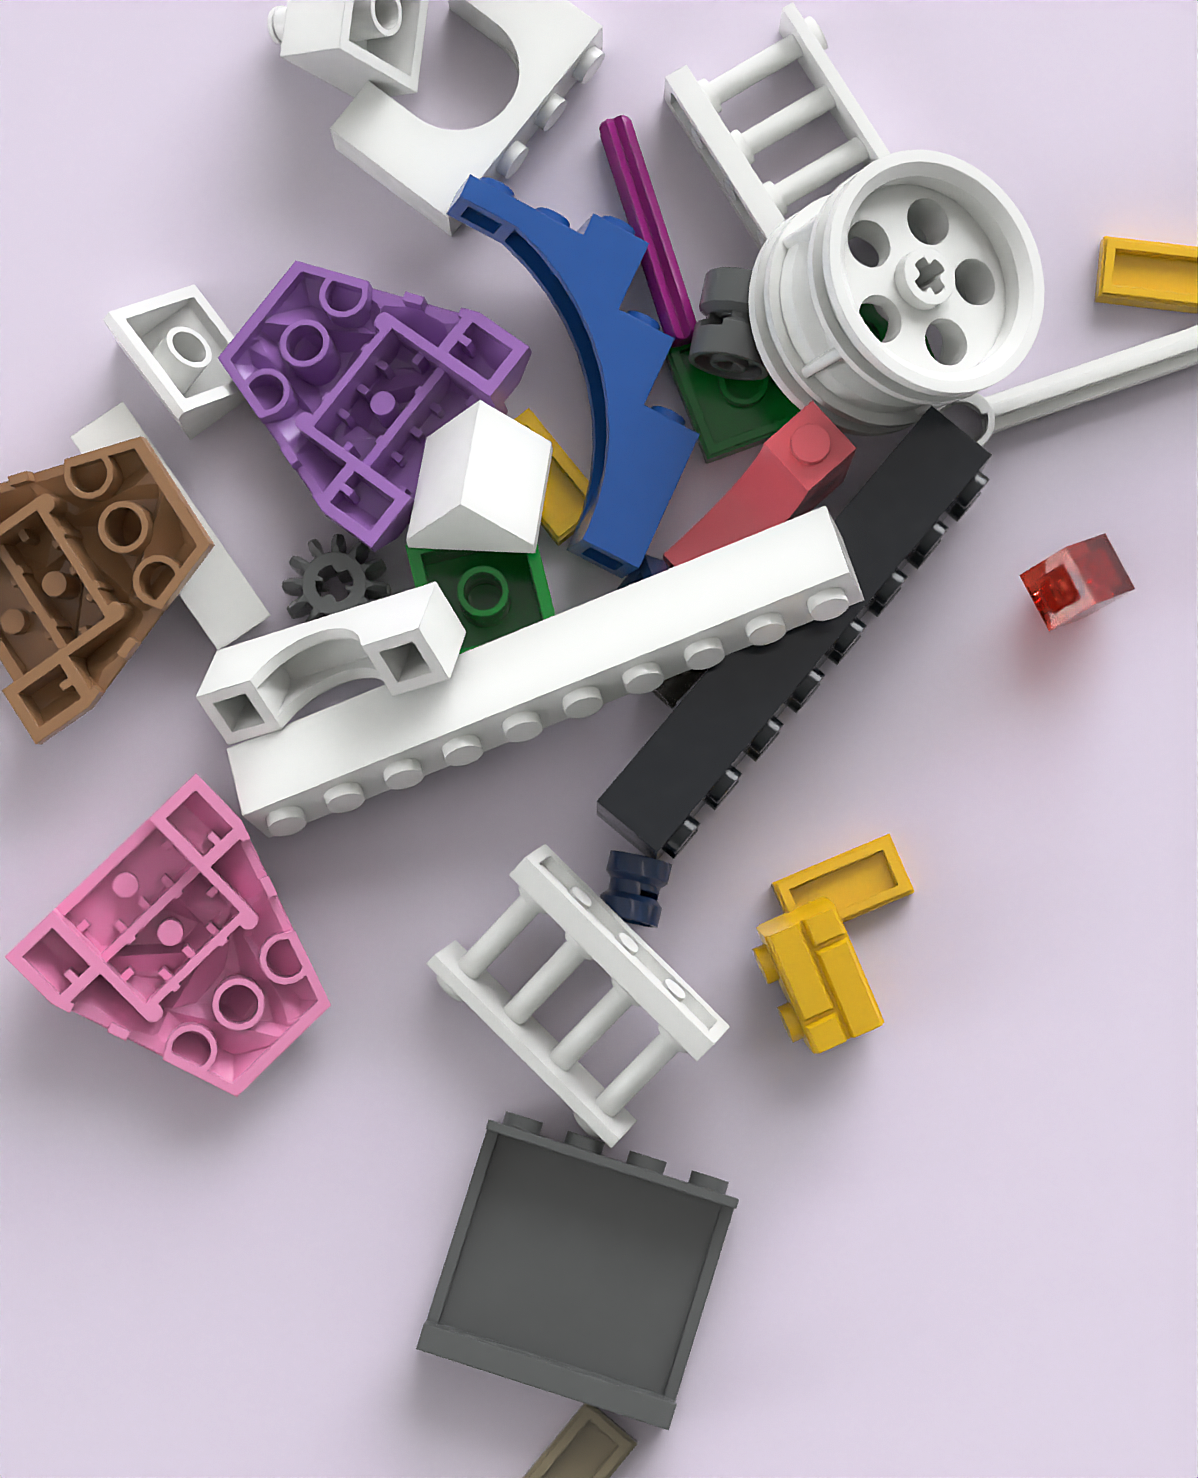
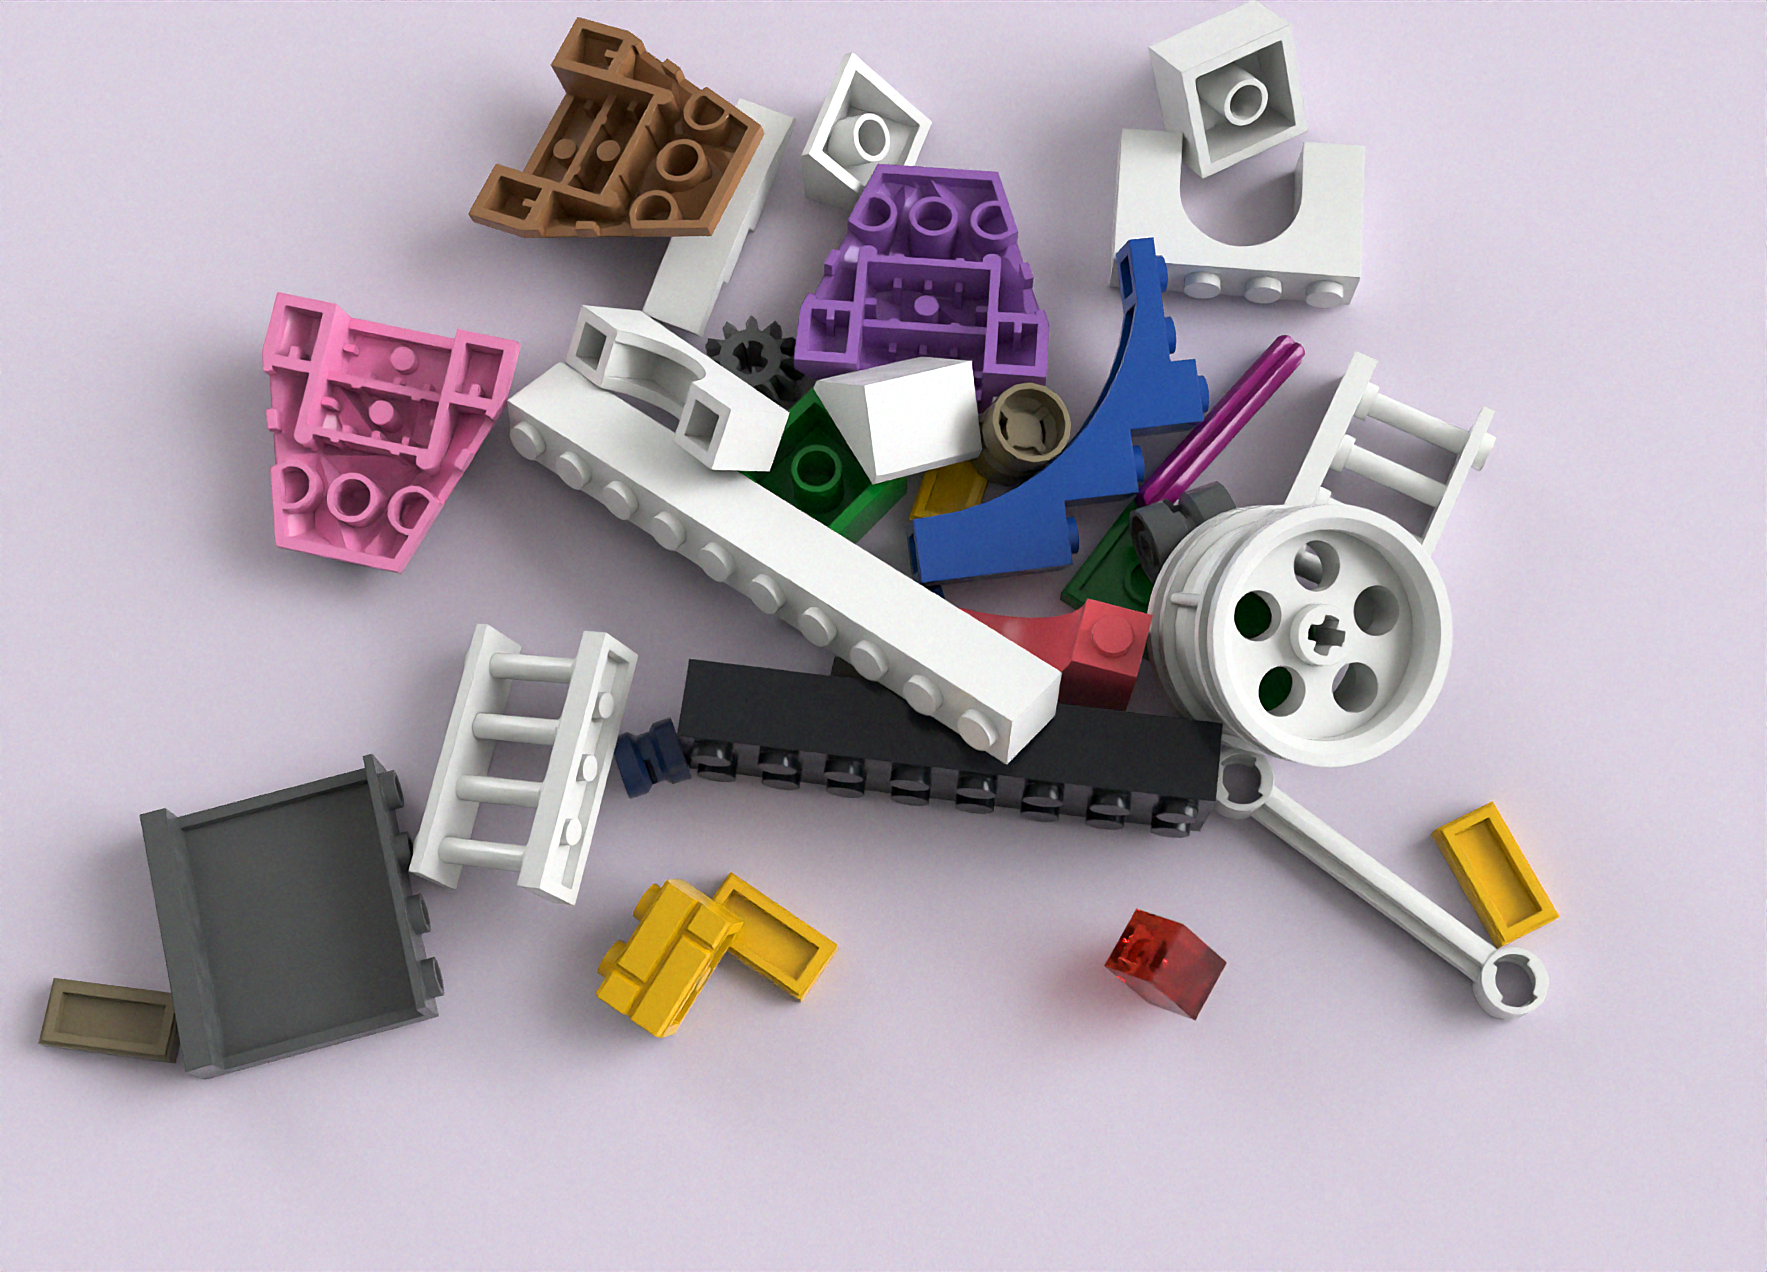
camera: 60 degrees right, 10 degrees down
(560, 398) = (1021, 433): none -> dark tan wheel

